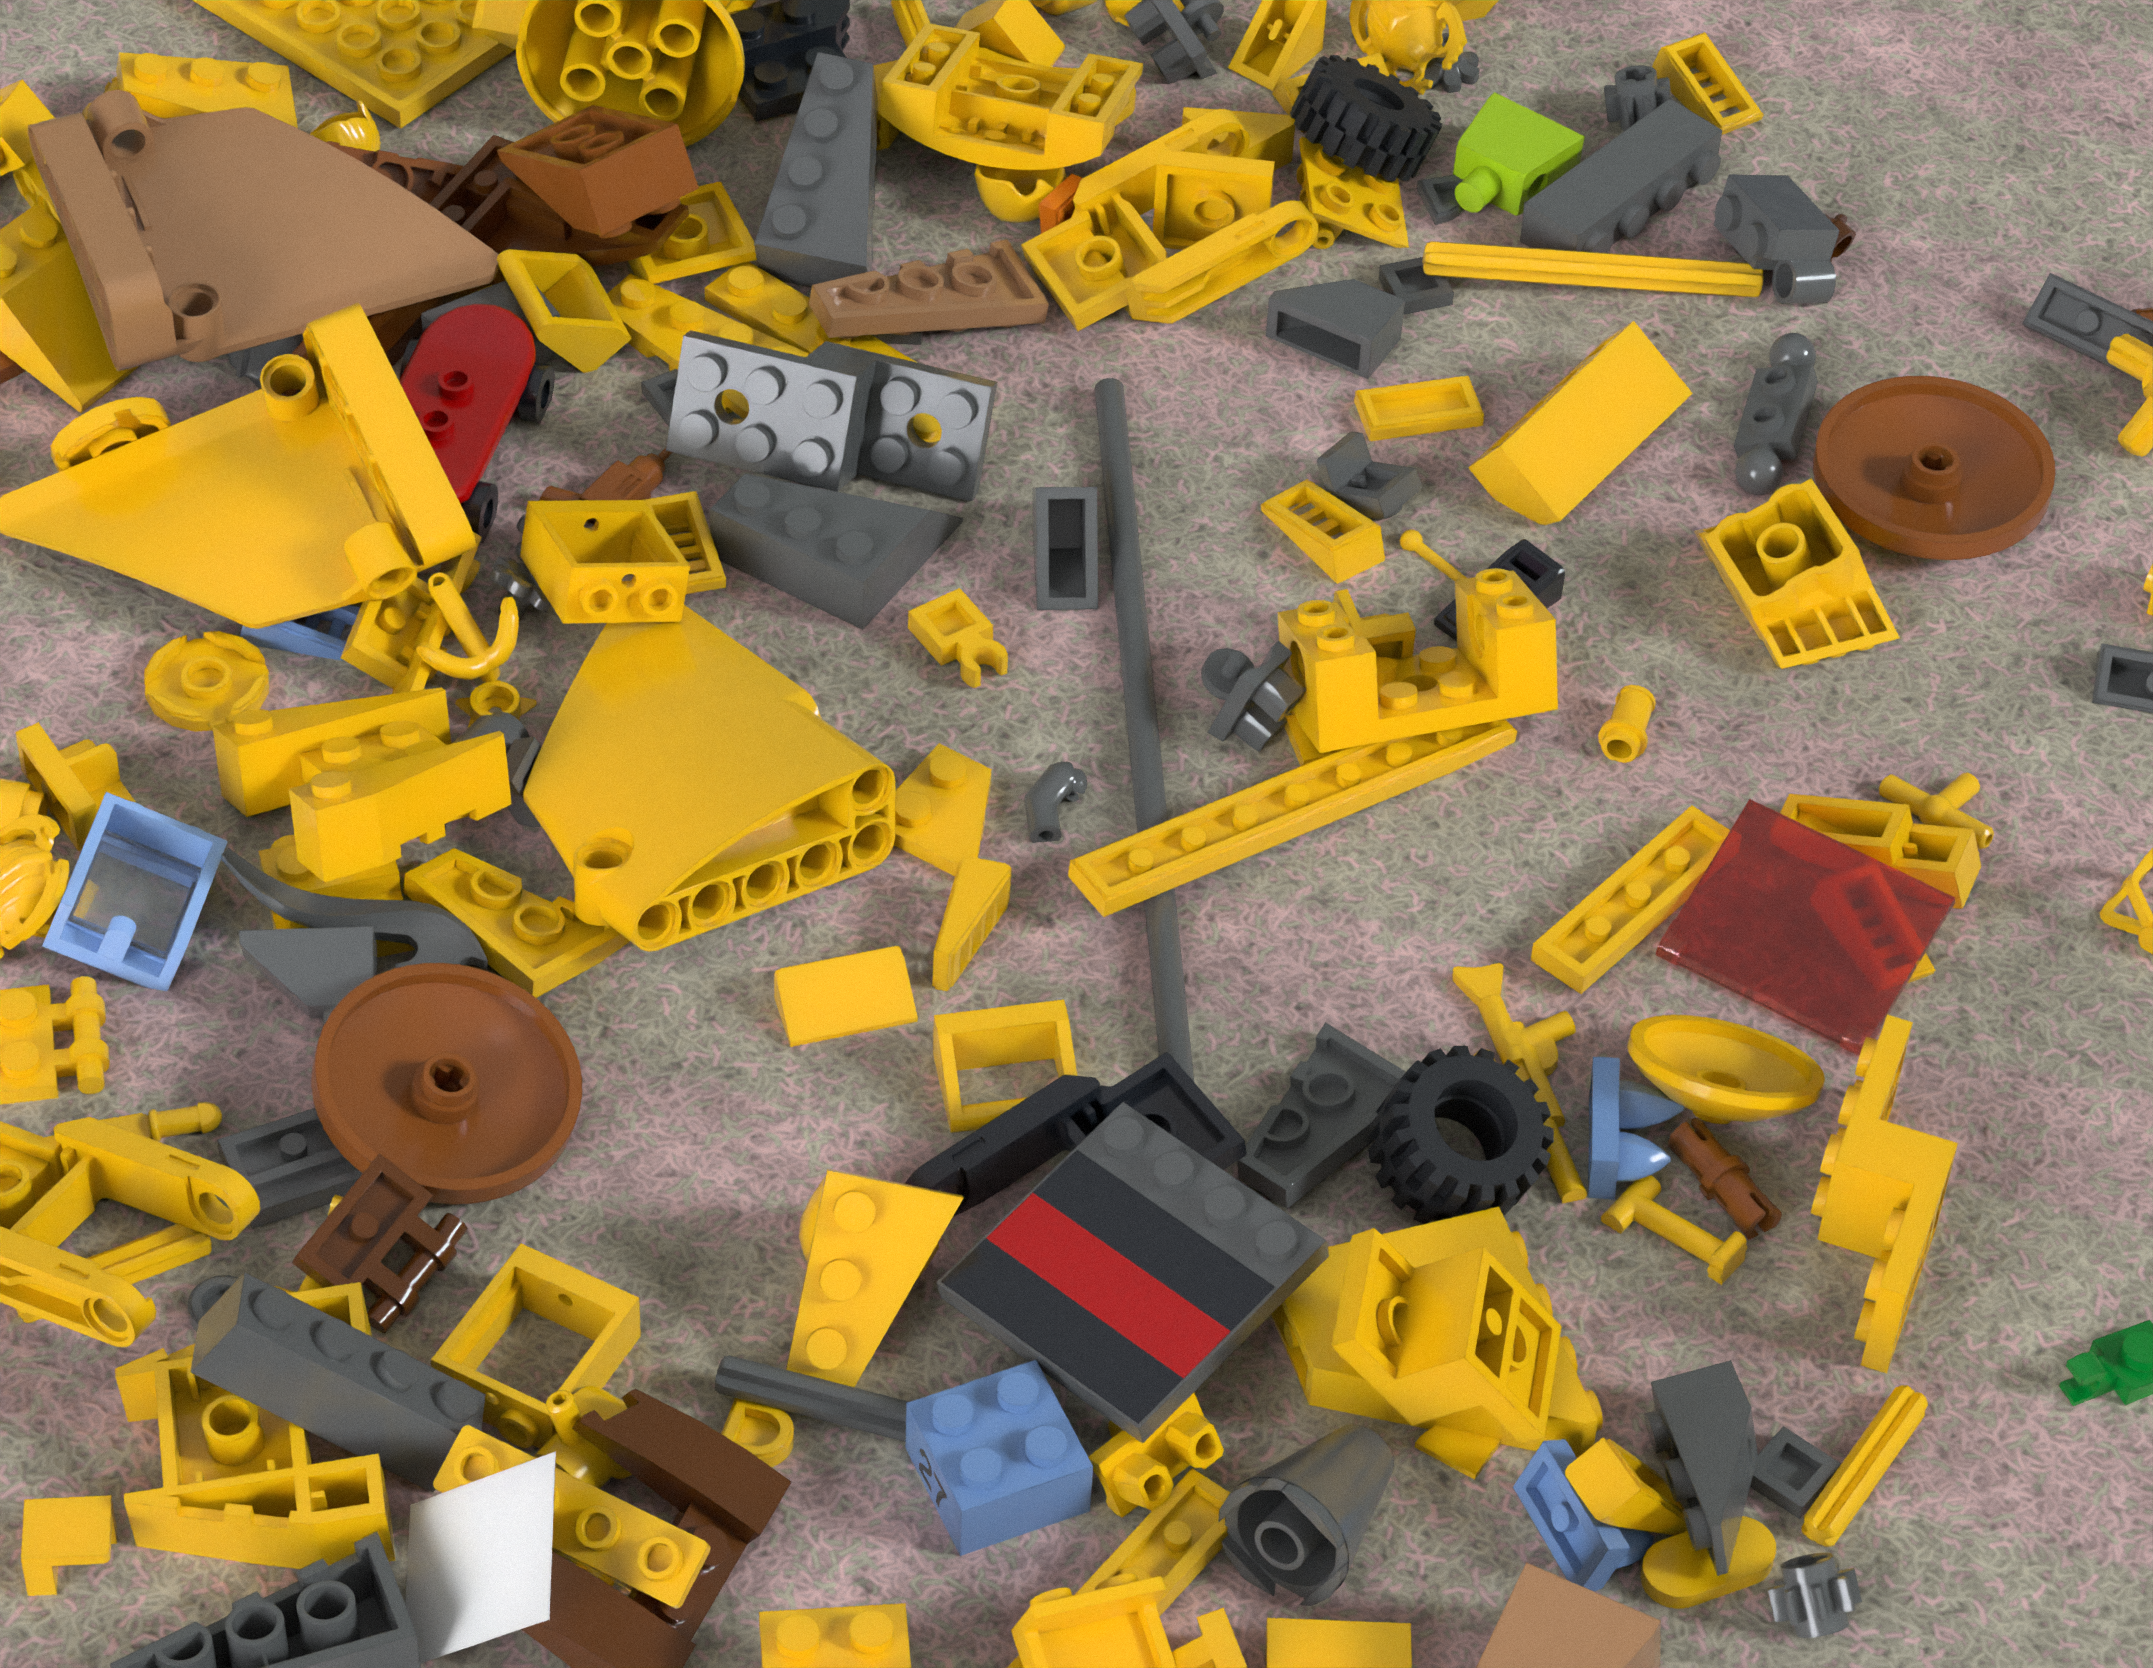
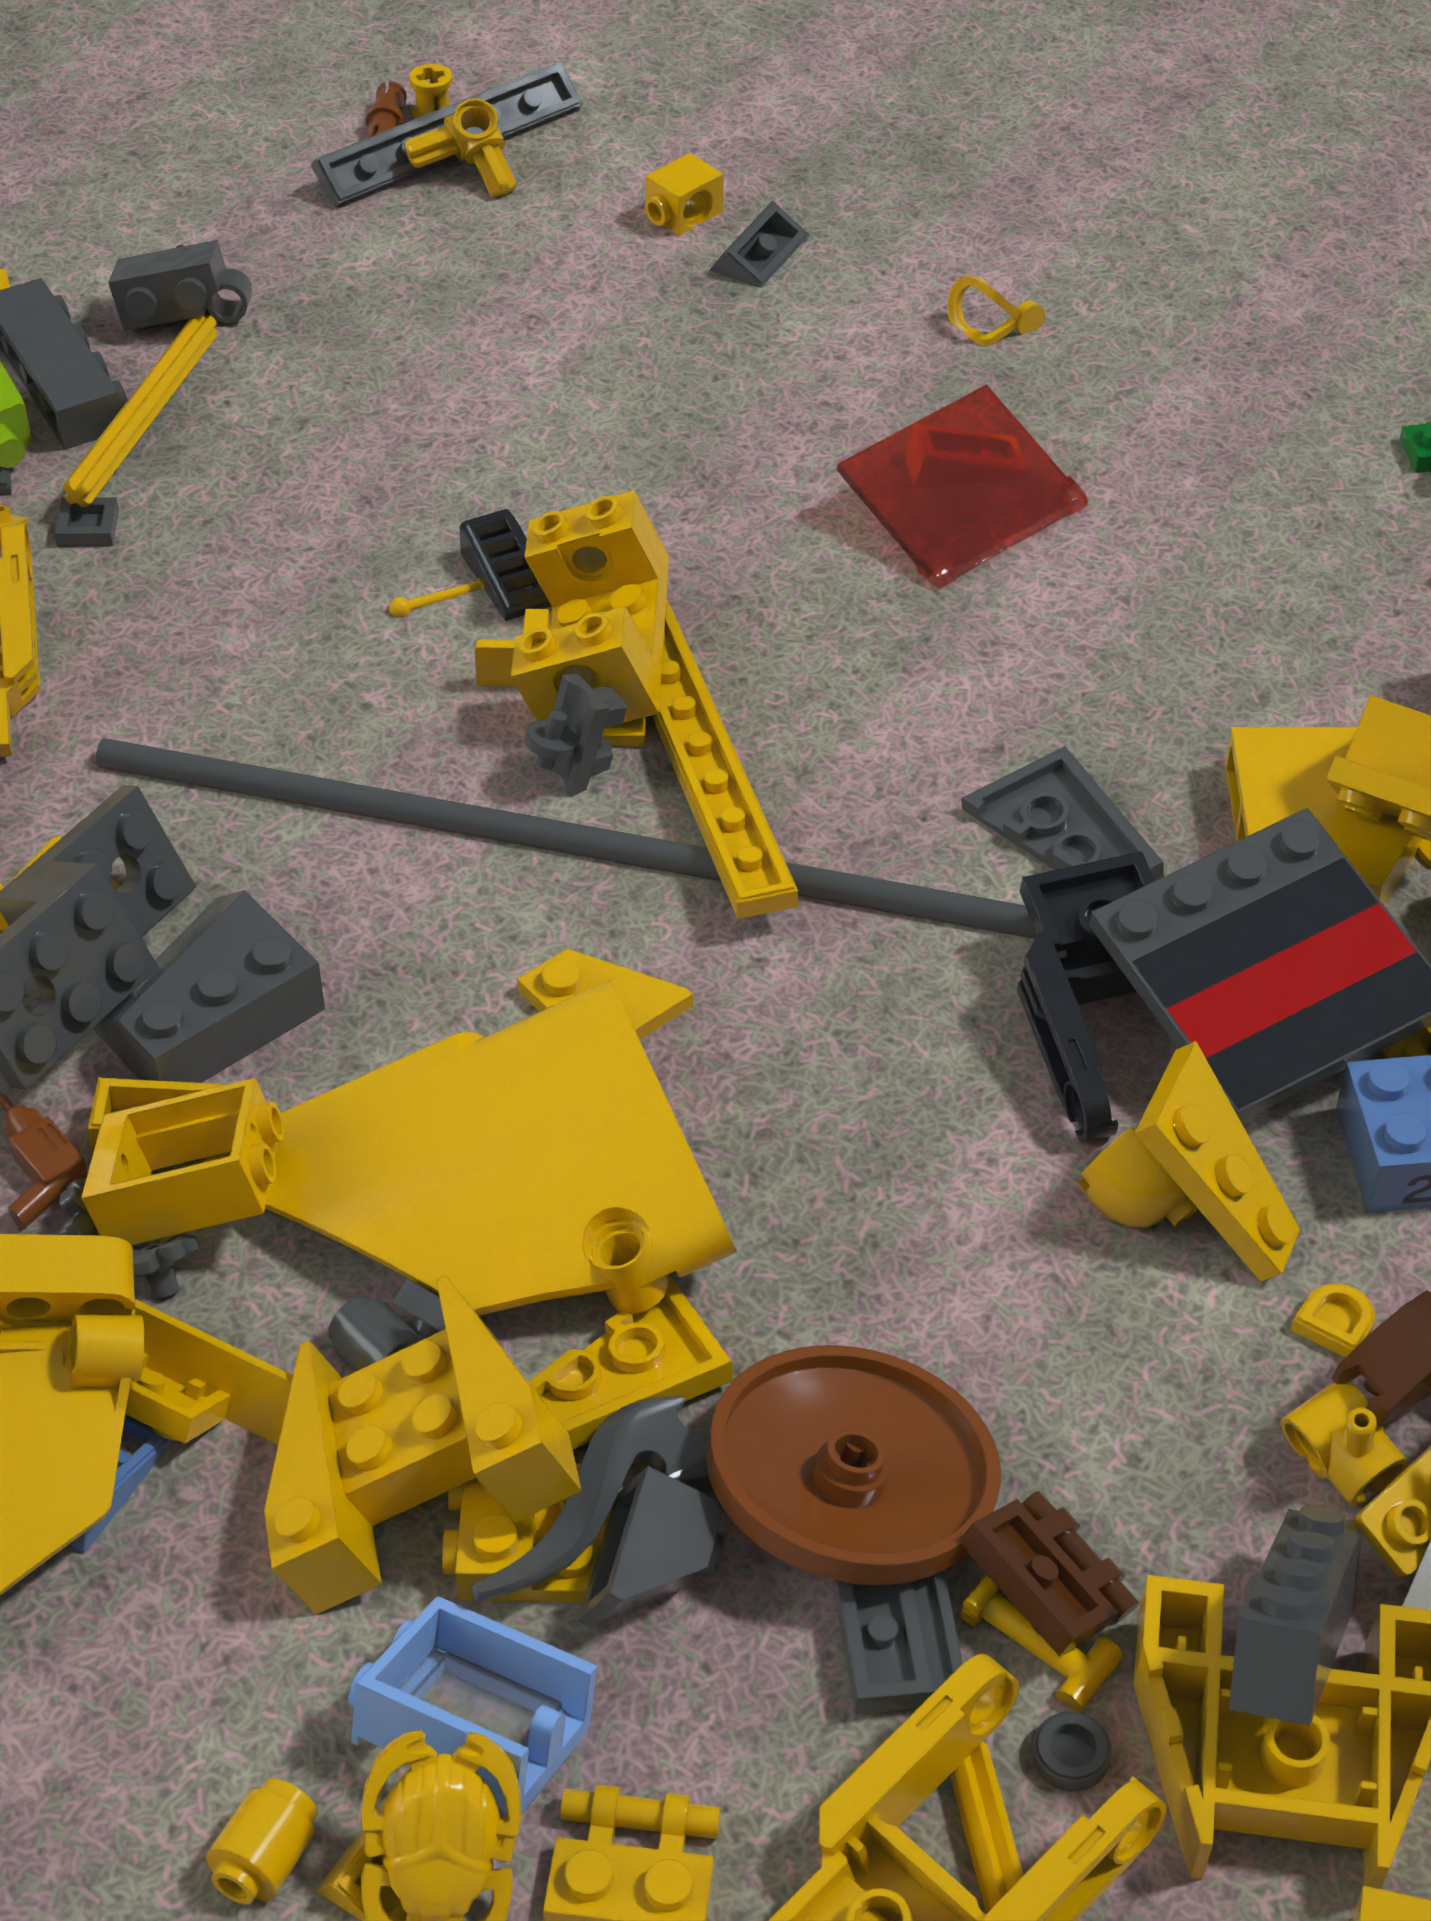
camera: 70 degrees left, 0 degrees up
(71, 777) = (232, 1755): yellow panel -> none
(172, 1122) = (791, 1787): yellow piece -> none
(207, 695) = (141, 1617): yellow tile -> none
(482, 658) = (240, 1317): yellow piece -> none
(492, 695) = (292, 1316): yellow plate -> none
(560, 1295) = (1208, 1392): yellow window -> none
(812, 1397) = (1314, 1257): dark grey axle -> none
(844, 995) = (818, 1127): yellow slope -> none
(956, 629) = (378, 935): yellow plate -> none
(972, 911) = (760, 1008): yellow slope -> none
(996, 1039) = (929, 1063): yellow tile -> none
(1041, 801) = (614, 921): dark grey arm -> none
(1065, 547) = (303, 821): dark grey slope -> none
(1338, 323) = (123, 572): dark grey slope -> none
(1340, 557) = (394, 653): yellow slope -> none
(1366, 485) = (331, 608): dark grey bracket -> none
(1419, 408) = (241, 560): yellow tile -> none
(1486, 1101) = (1148, 732): black tyre -> none
(1534, 1052) = (1058, 701): yellow piece -> none
(1582, 428) = (331, 463): yellow brick -> none
(1616, 1107) = (1127, 651): medium blue tile -> none
(1627, 724) = (695, 534): yellow pin -> none
(1630, 902) = (888, 577): yellow plate -> none
(1638, 1205) = (1214, 670): yellow piece -> none
(1724, 1068) = (1109, 563): yellow dish -> none
(1724, 1178) = (1201, 608): dark orange pin -> none
(1775, 414) = (372, 353): dark grey plate -> none
(1798, 578) = (572, 383): yellow slope -> none
(1882, 1191) = (1275, 505): yellow bracket -> none
(1885, 831) = (879, 414): yellow slope -> none
(1934, 467) = (495, 279): dark orange dish -> none
(1940, 808) = (845, 390): yellow piece -> none

